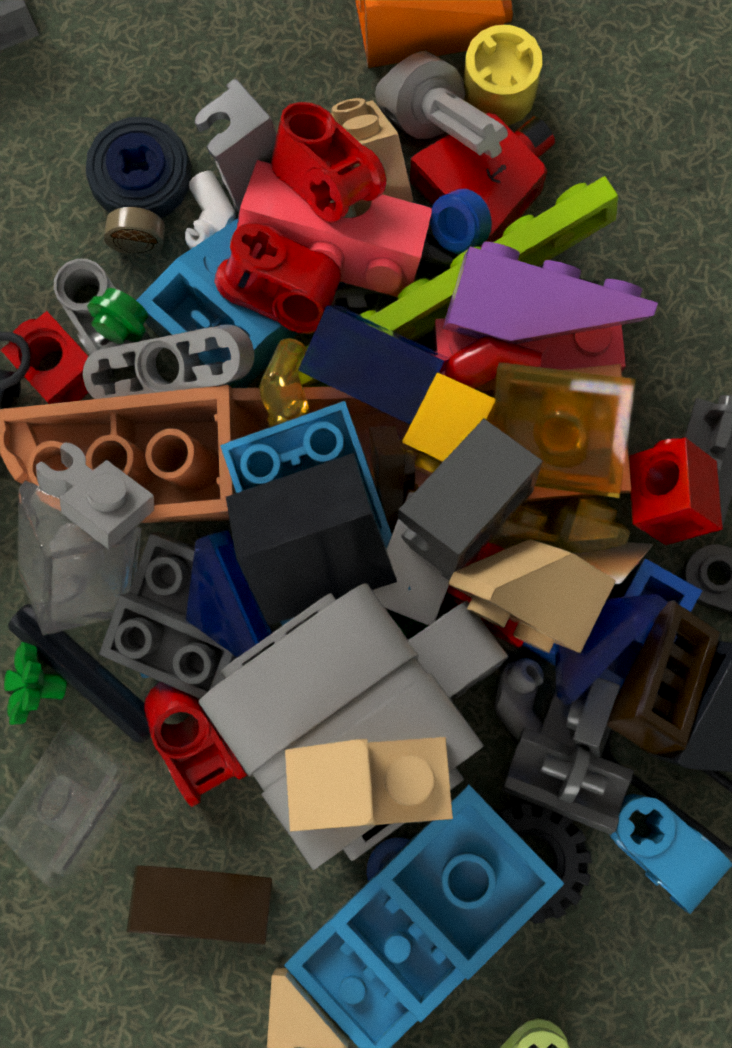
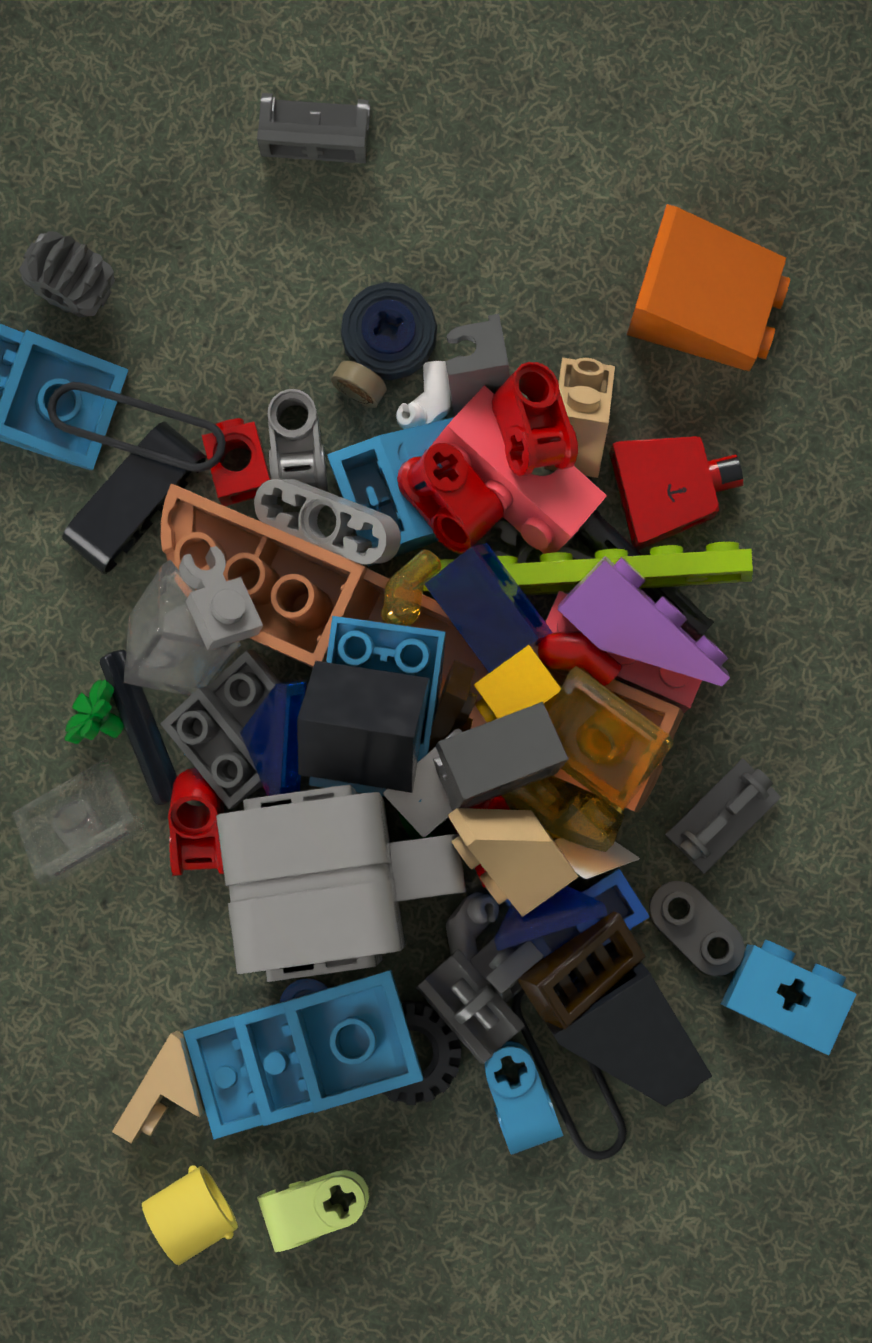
camera: 25 degrees right, 5 degrees up
(118, 316) = (307, 460): green plate -> none
(199, 904) = (142, 953): dark brown slope -> none
(368, 783) = (303, 935): tan slope -> none
(427, 99) = (655, 395): light grey piece -> none
(460, 220) = (623, 518): blue tile -> none
(503, 72) = (728, 406): light yellow piece -> none
(675, 491) = (673, 828): red brick -> none

